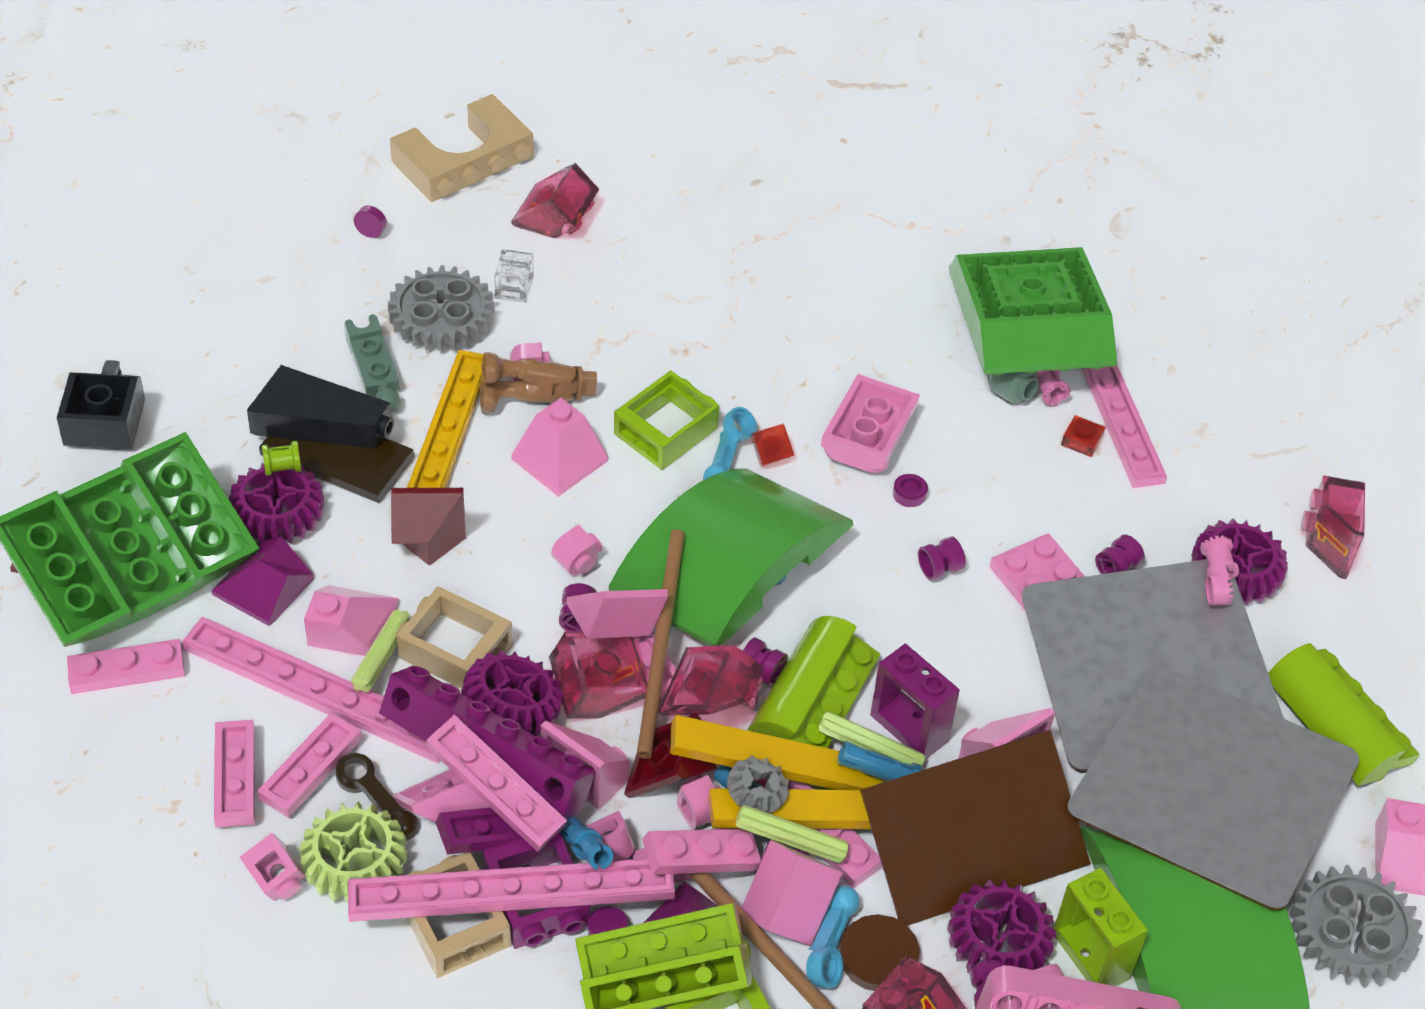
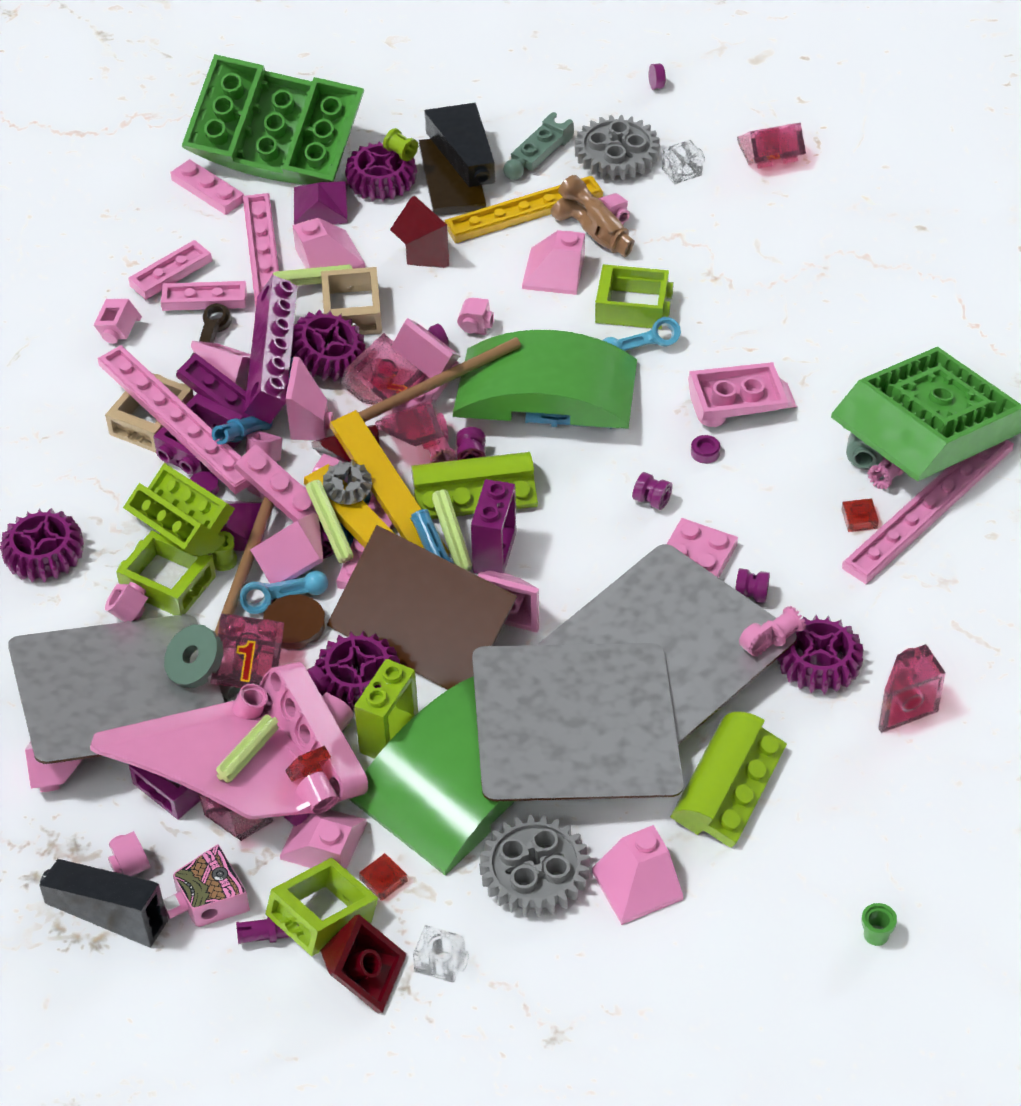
camera: 60 degrees right, 0 degrees up
(101, 408) = (376, 60): black hinge -> none
(346, 840) = (168, 334): yellowish green gear -> none
(443, 172) = (796, 93): tan arch -> none
(496, 783) = (235, 363): bright pink plate -> none
(772, 445) = (665, 357): clear red plate -> none

